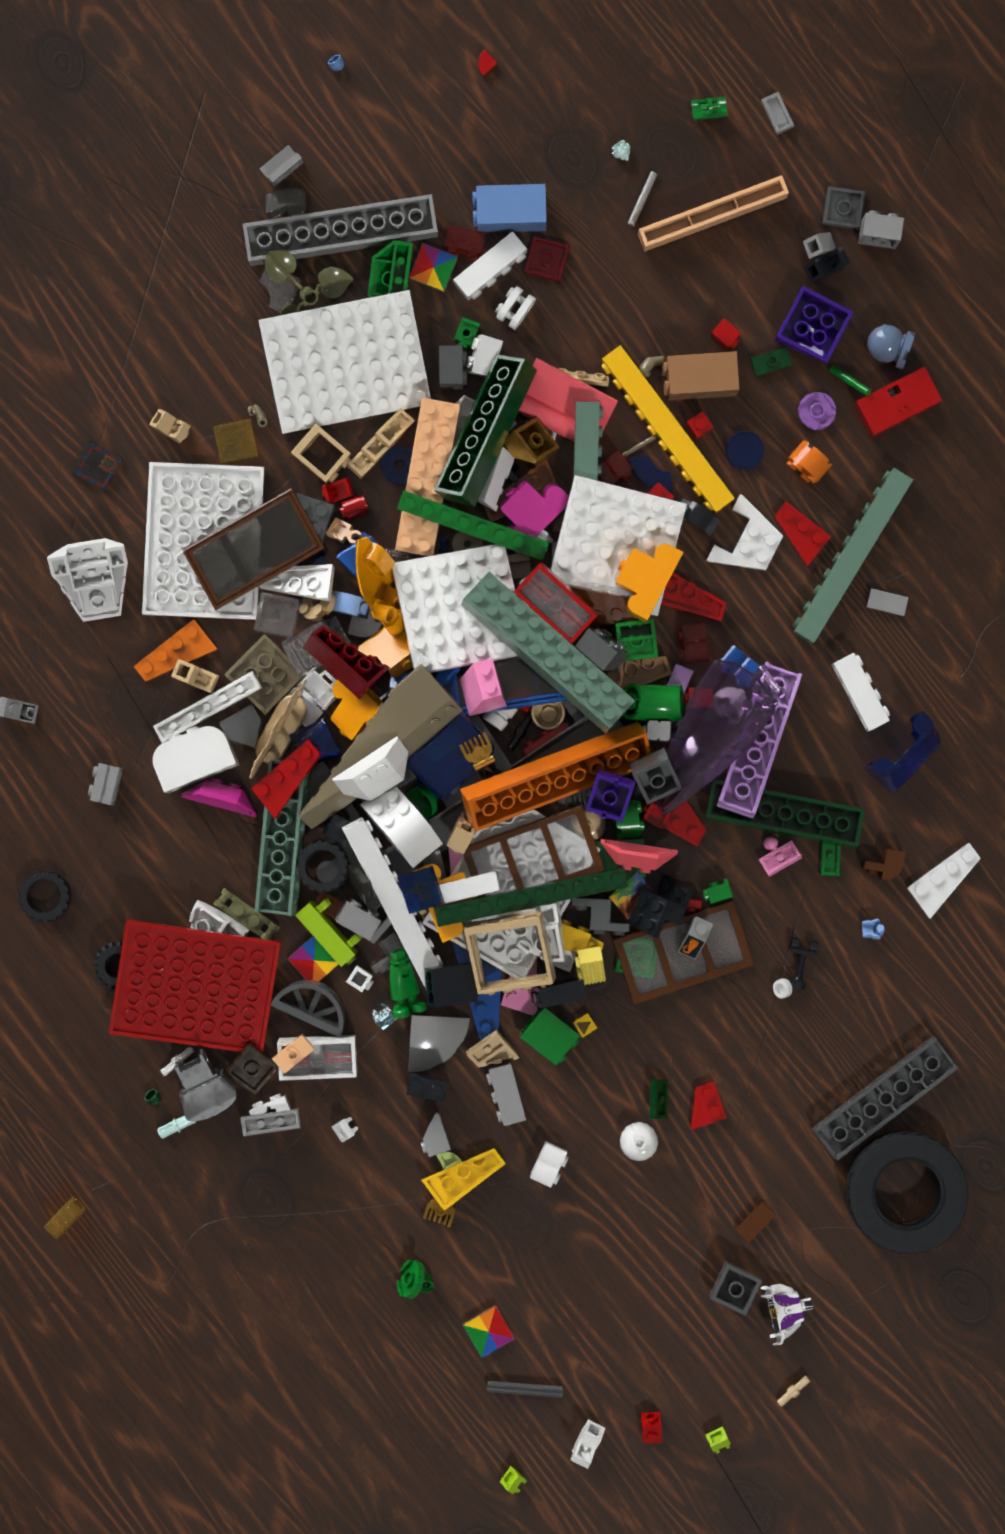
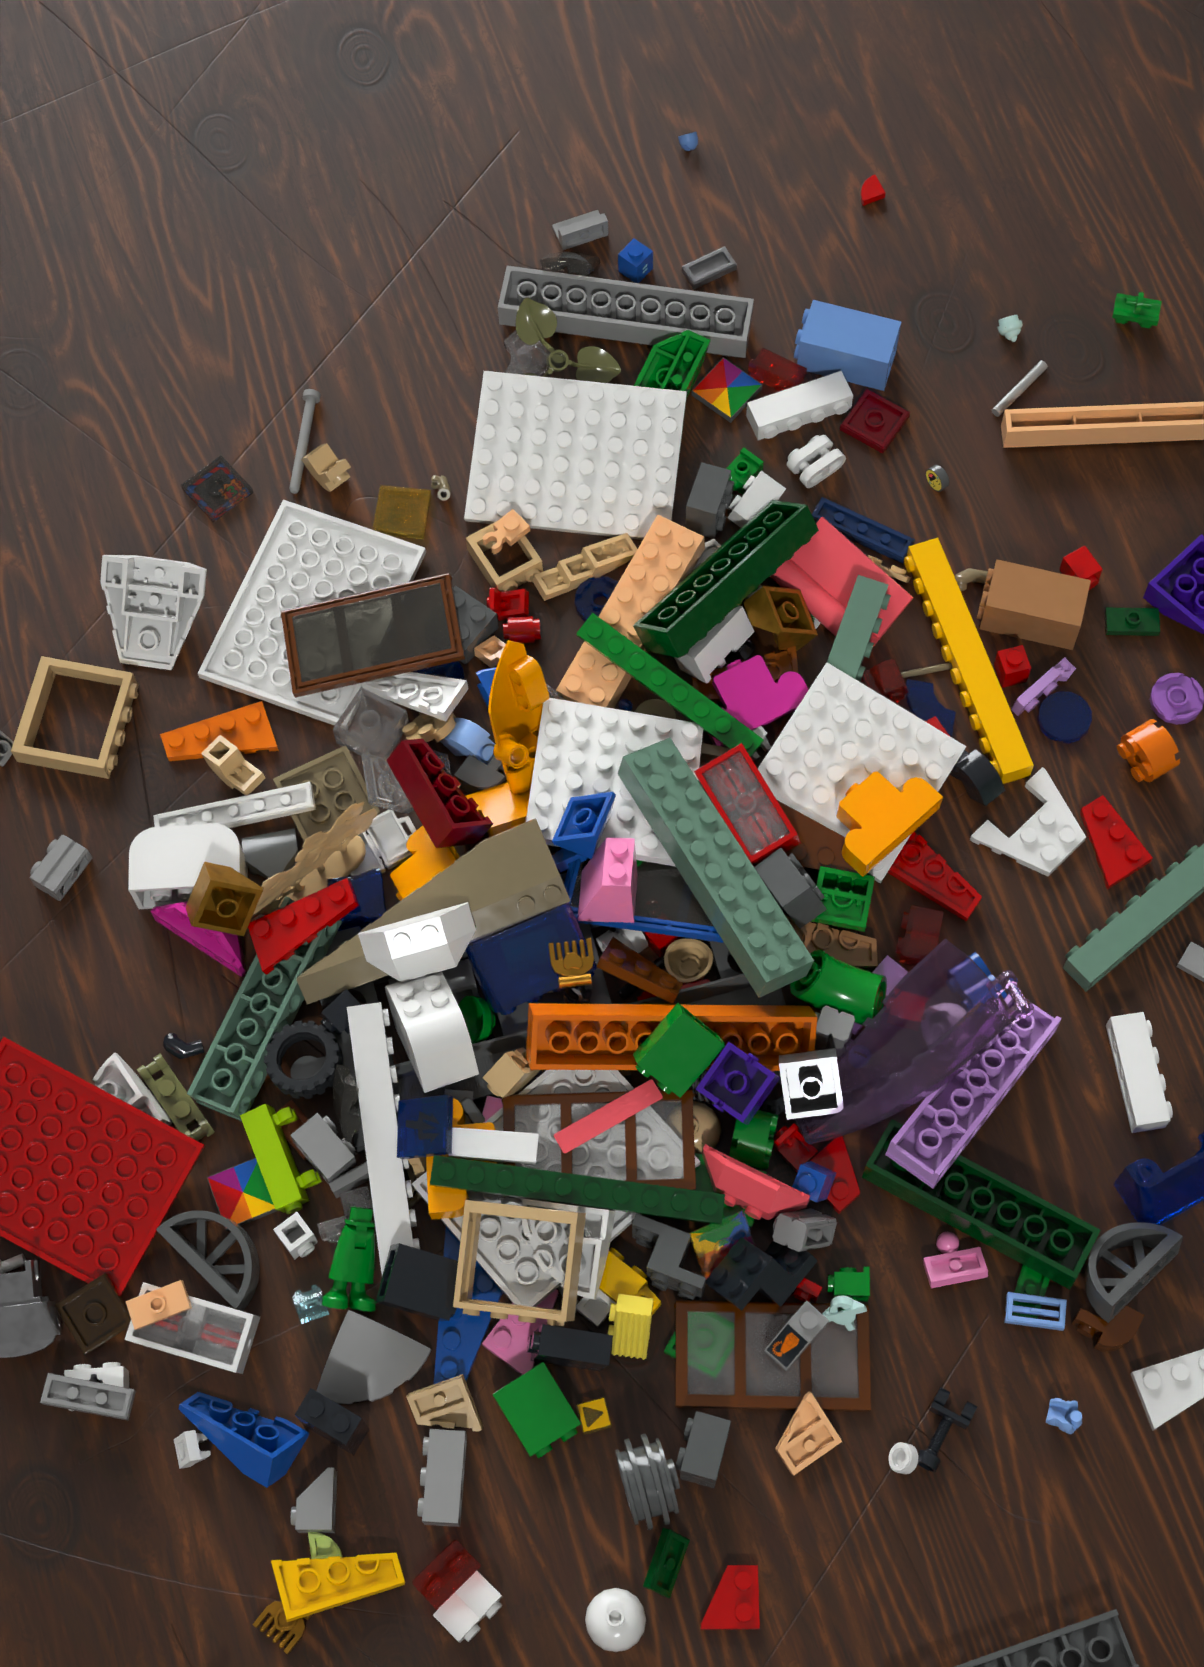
camera: 20 degrees right, 20 degrees down
(40, 681) = (35, 706): none -> tan window
(143, 406) = (311, 397): none -> light grey bar
(230, 781) = (222, 900): none -> pearl gold slope
(236, 880) = (180, 1048): none -> black arm
(319, 437) = (507, 529): none -> light nougat plate
(332, 183) = (635, 261): none -> blue brick
(380, 1112) = (253, 1443): none -> blue wedge
(387, 168) = (709, 267): none -> flat silver tile
(444, 864) = (472, 1111): none -> dark grey tile
(453, 653) = (584, 823): none -> blue slope
(518, 737) = (639, 971): none -> reddish brown wing
(529, 1151) = (446, 1574): none -> clear red bracket
(533, 840) = (608, 1116): none -> coral sticker
(564, 350) = (864, 530): none -> dark blue tile
(566, 787) = (678, 1051): none -> green brick
(605, 293) = (937, 478): none -> tile
(633, 1058) = (648, 1481): none -> dark grey wheel
(660, 1026) = (704, 1449): none -> dark grey brick
(675, 836) = (814, 1180): none -> blue brick
(679, 869) = (804, 1229): none -> light grey brick
(719, 911) = (843, 1311): none -> light aqua piece
(719, 995) = (806, 1436): none -> light nougat wing
(724, 433) = (1045, 685): none -> lavender hinge
(821, 873) = (1010, 1297): none -> light blue tile
(909, 800) = (1165, 1245): none -> dark grey window

